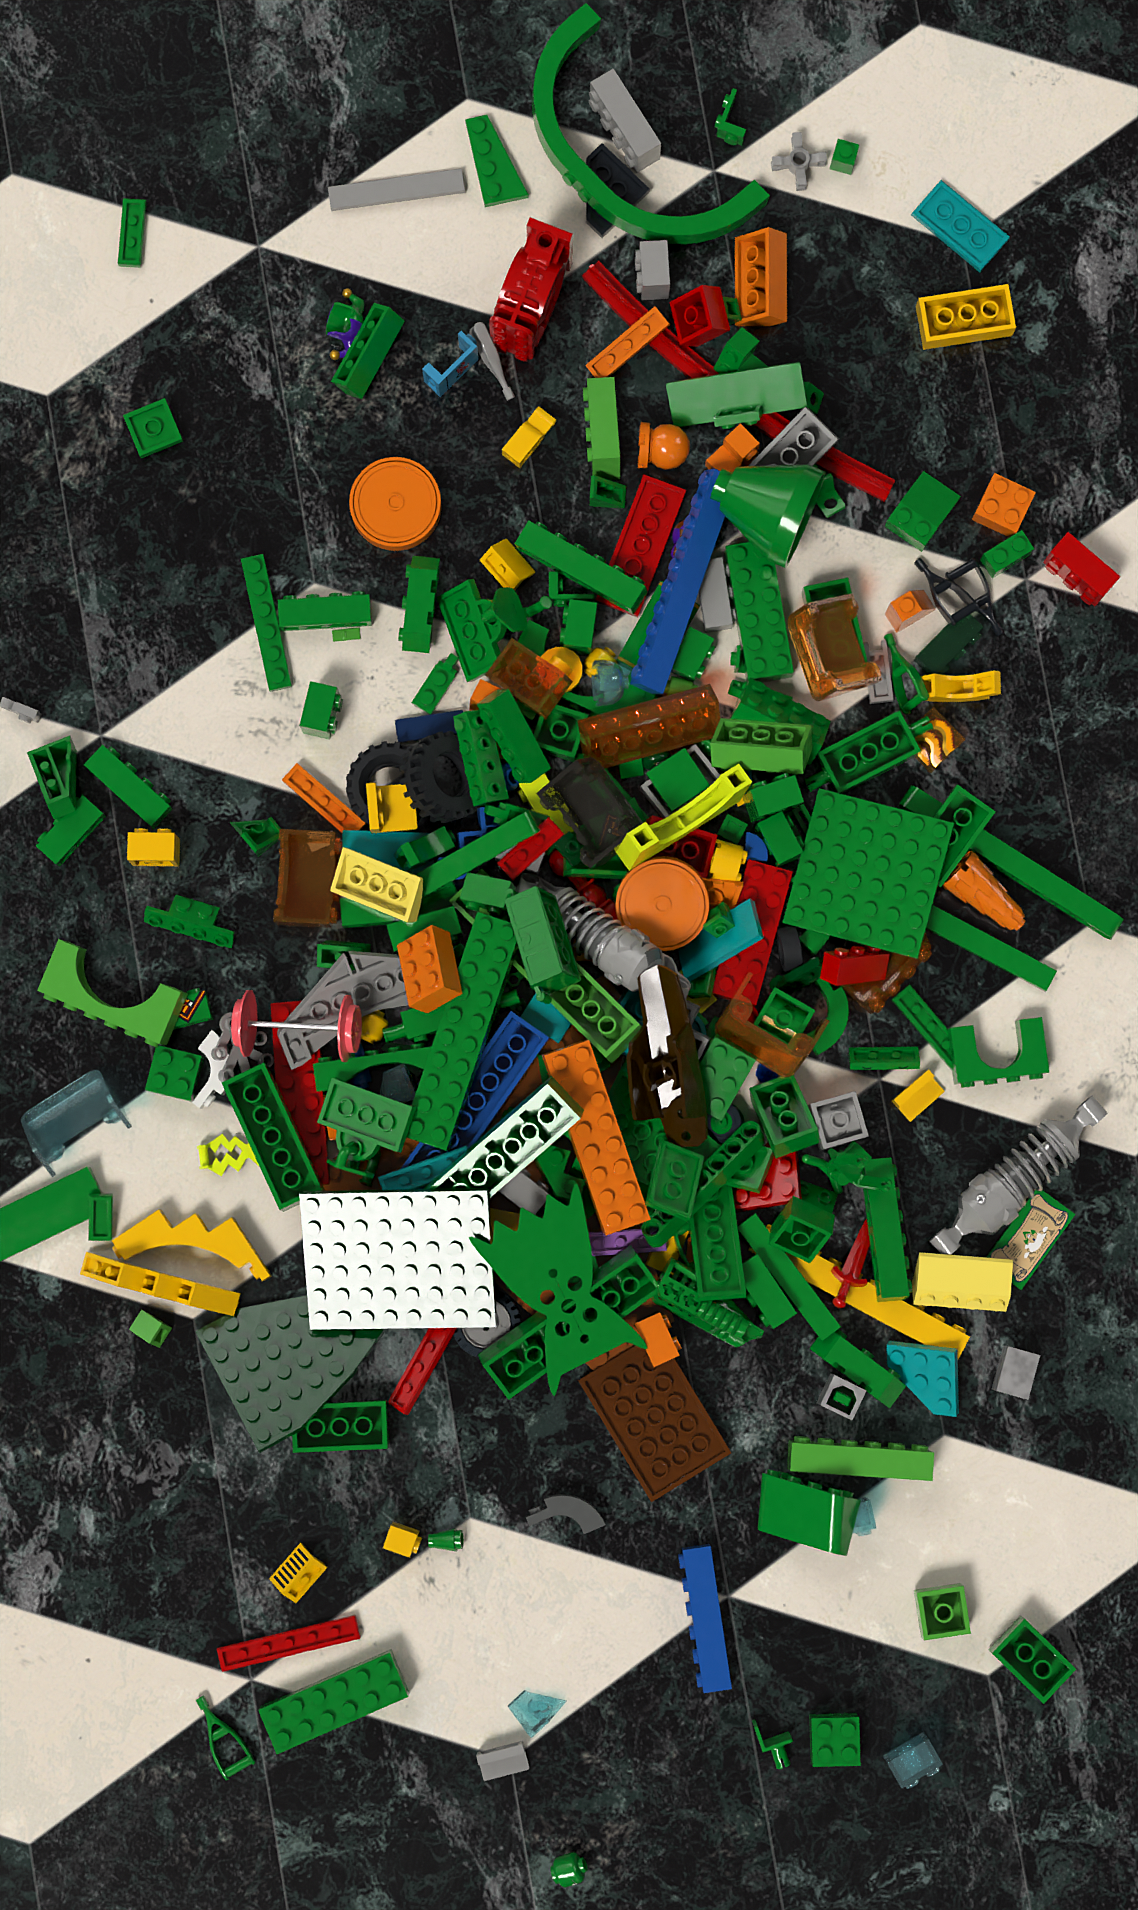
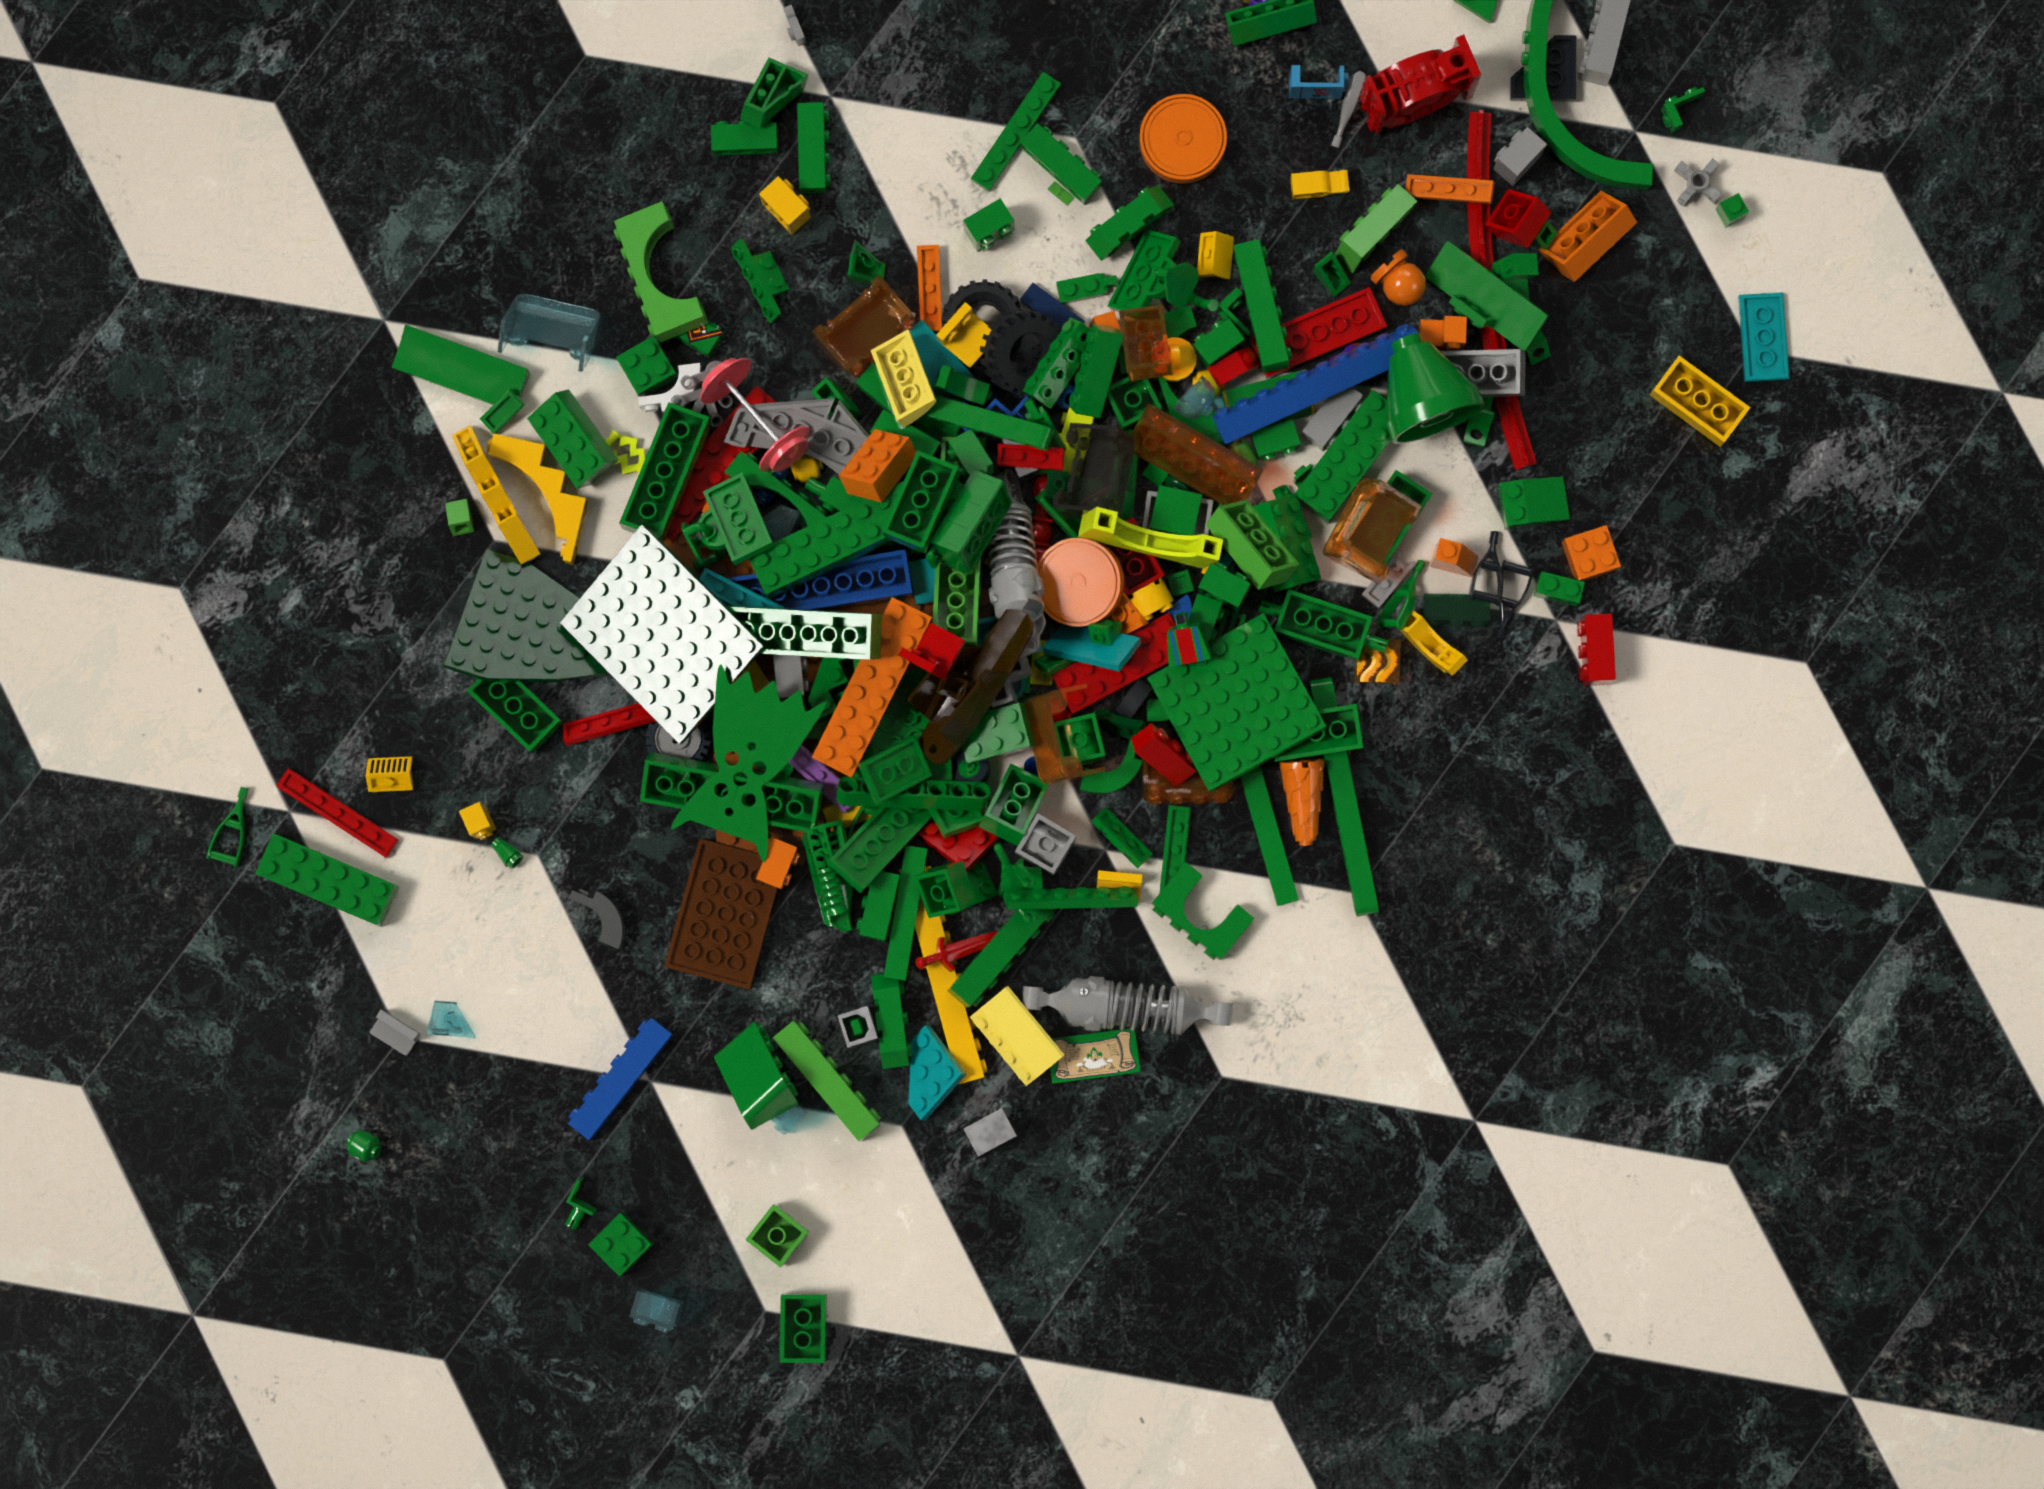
camera: 55 degrees right, 0 degrees up
(175, 1183) = (572, 438): none -> green brick
(493, 962) = (921, 501): none -> green brick
(608, 631) = (1234, 367): none -> red slope
(619, 1062) = (935, 651): none -> red bracket
(788, 866) = (1187, 642): none -> torso
(897, 1141) = (1070, 898): none -> green plate

